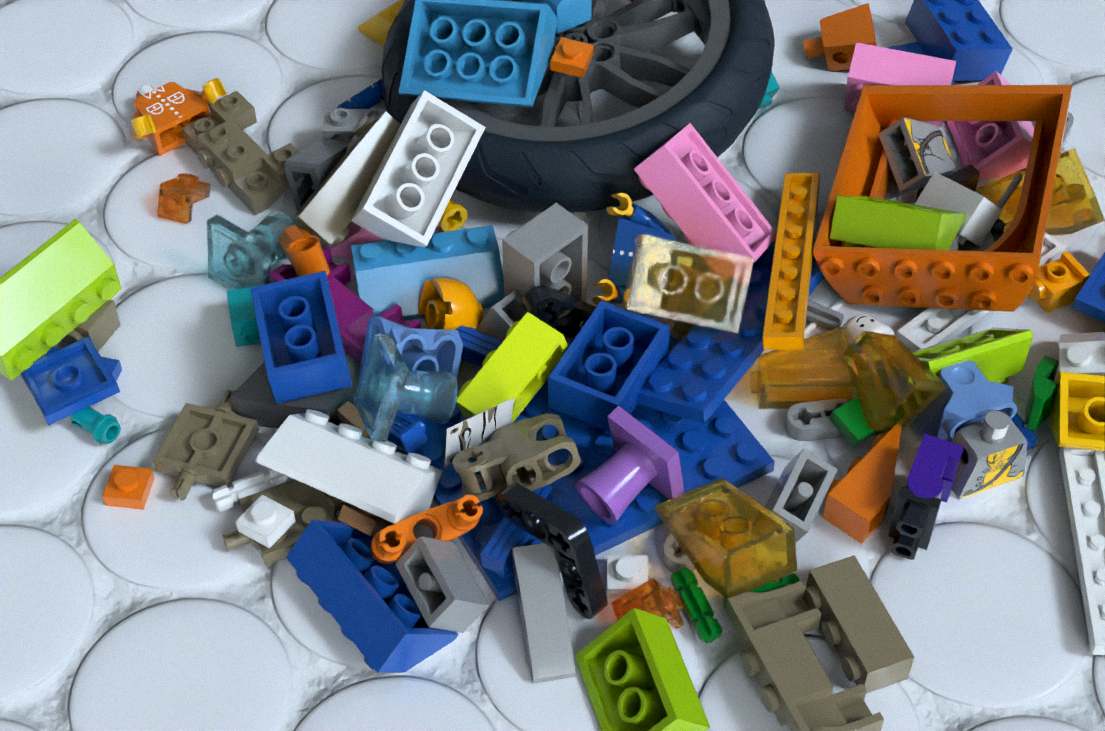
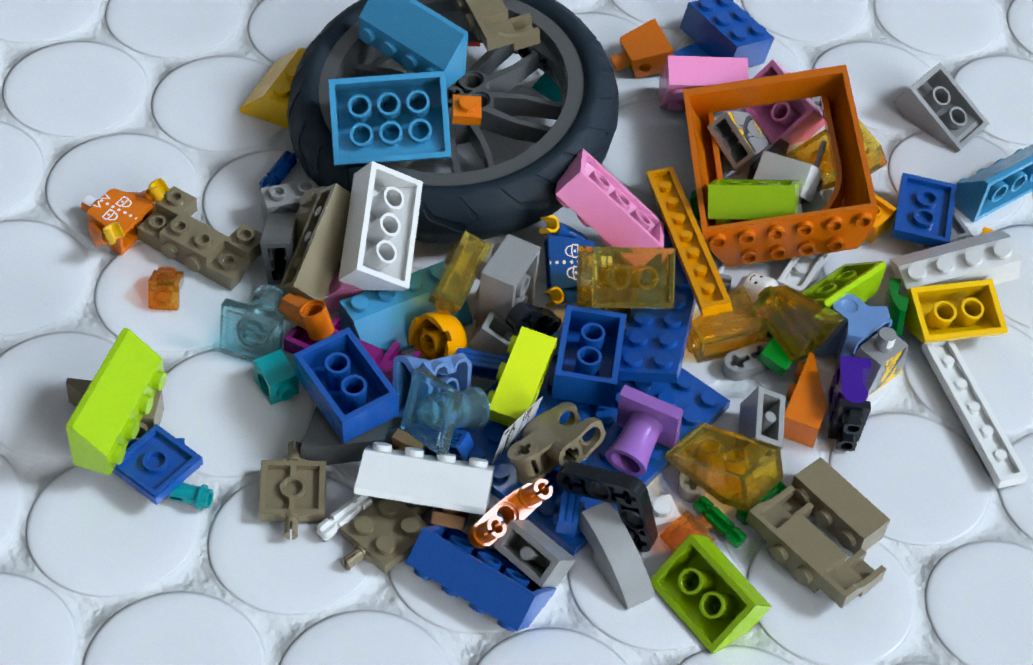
camera: 25 degrees left, 0 degrees up
(128, 487) = (243, 539): orange plate -> none
(265, 521) = (378, 538): white plate -> none
(481, 244) = (458, 273): none -> clear yellow slope

